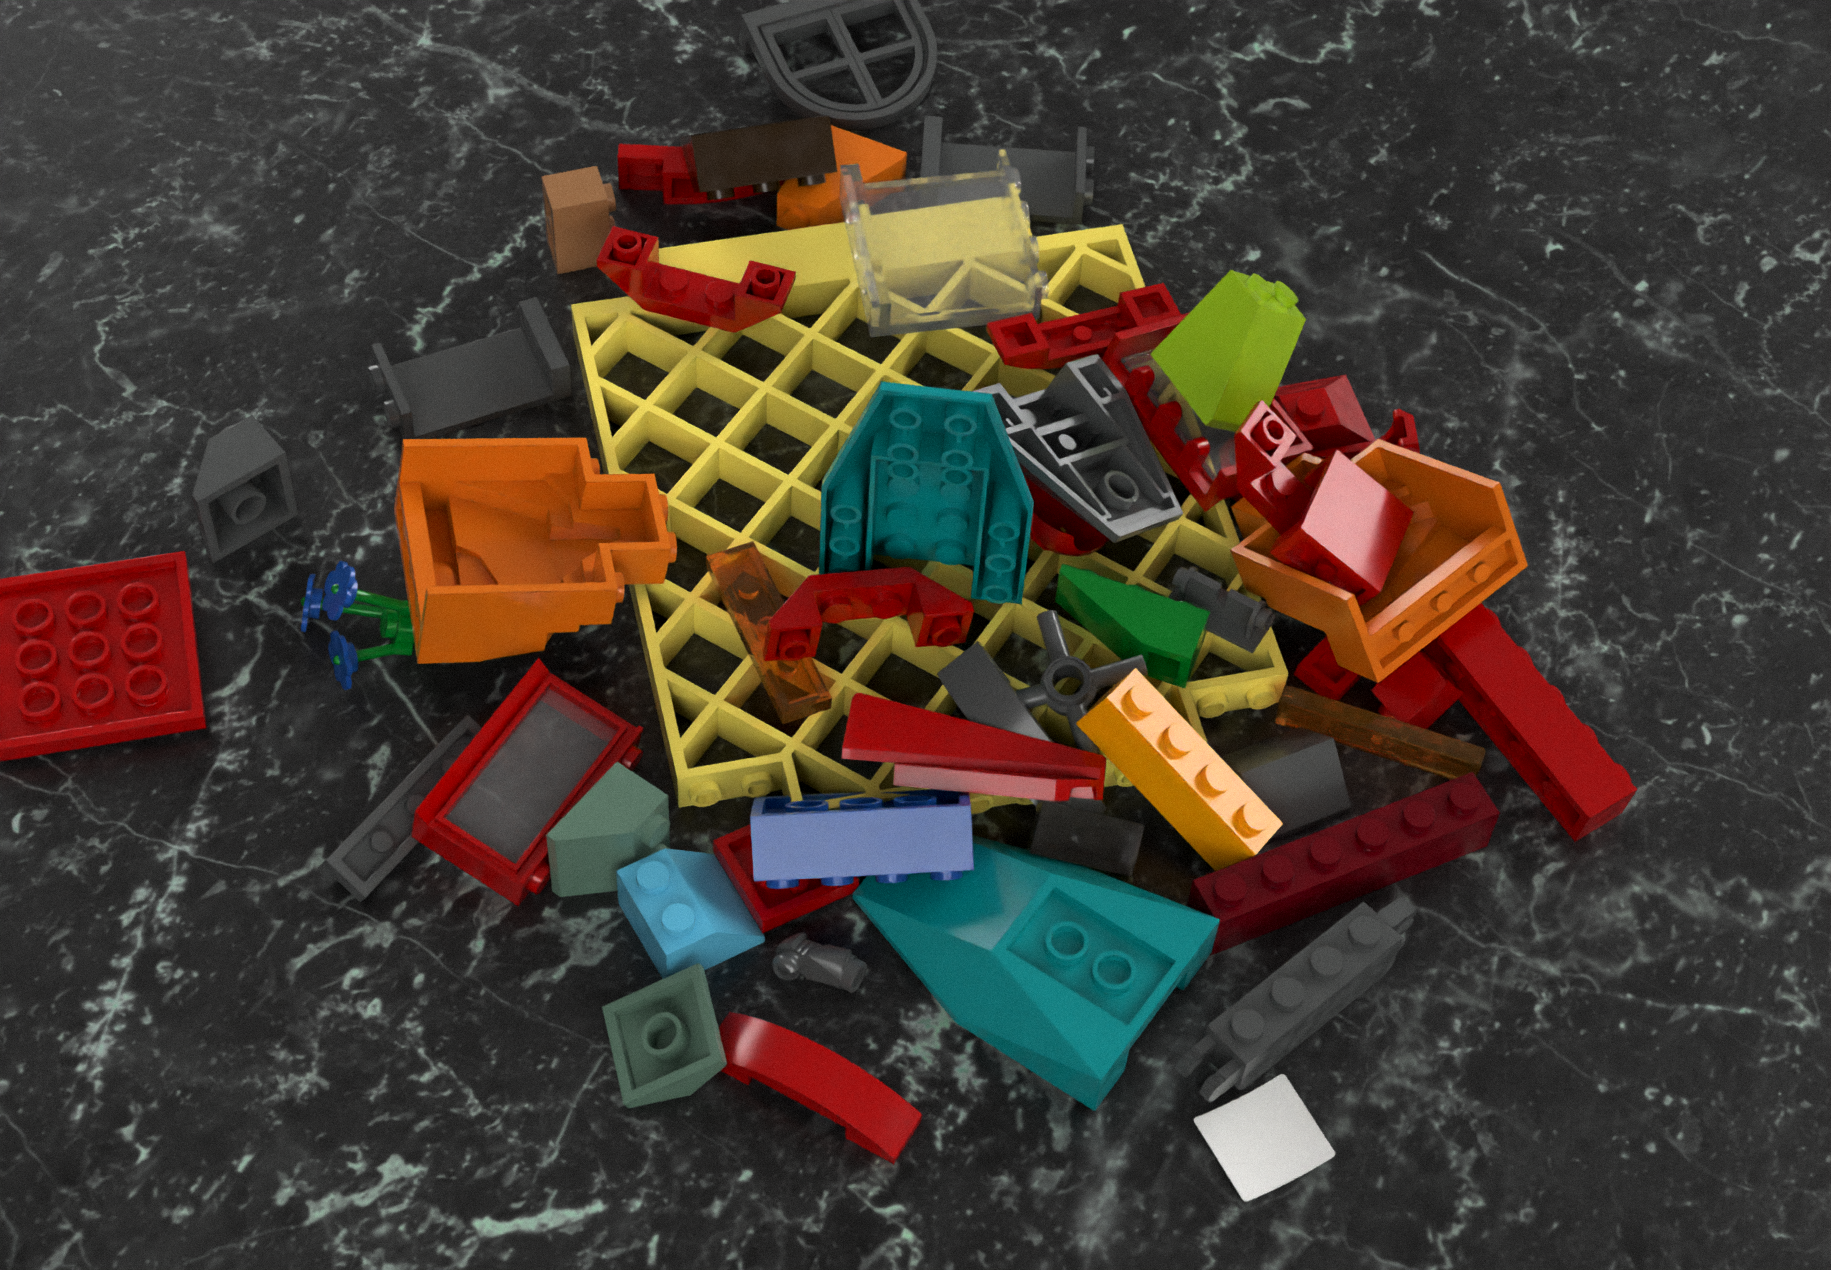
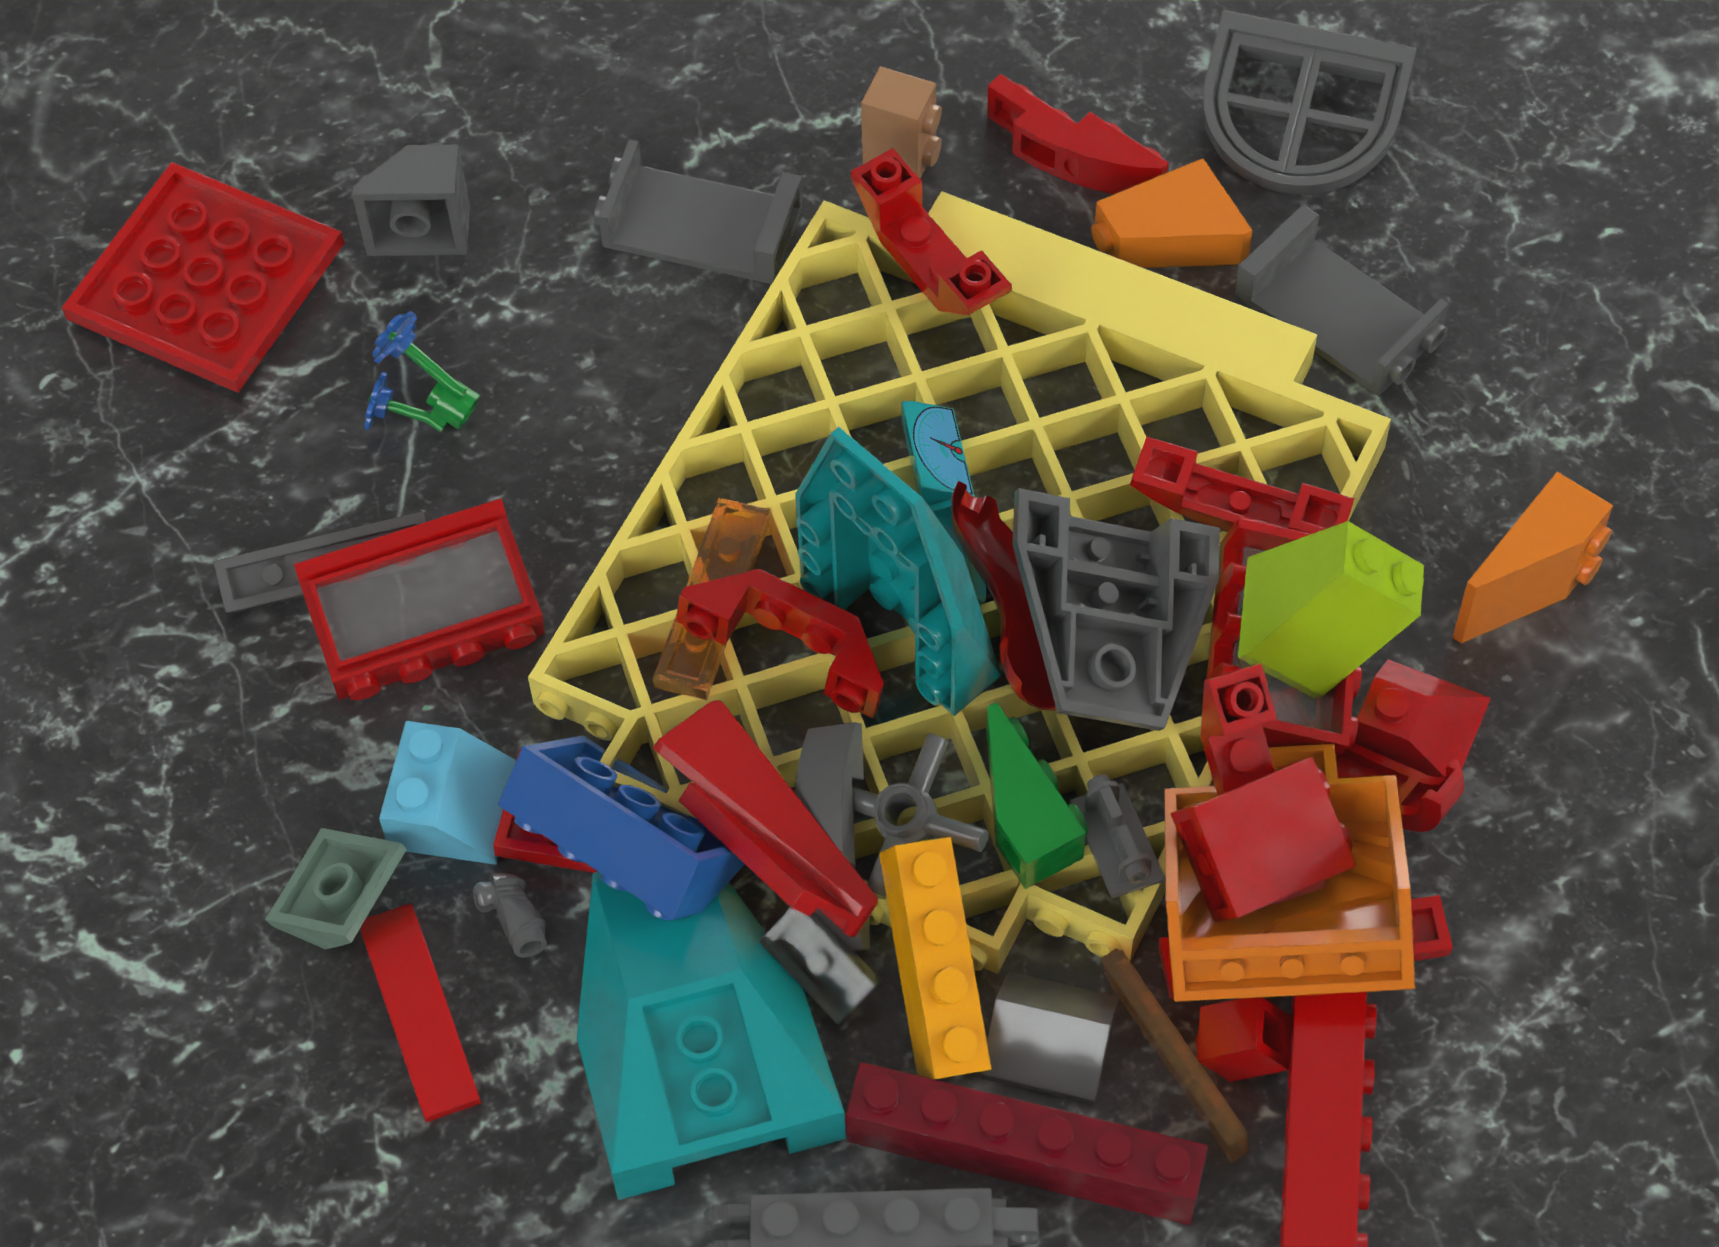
camera: 45 degrees right, 5 degrees up
(519, 542) = (572, 389): orange panel -> none
(605, 831) = (428, 683): sand green slope -> none
(760, 156) = (1099, 155): dark brown slope -> none
(819, 422) = (934, 450): none -> slope
(942, 249) = (1184, 341): clear panel -> none
(1306, 240) = (1537, 559): none -> orange slope

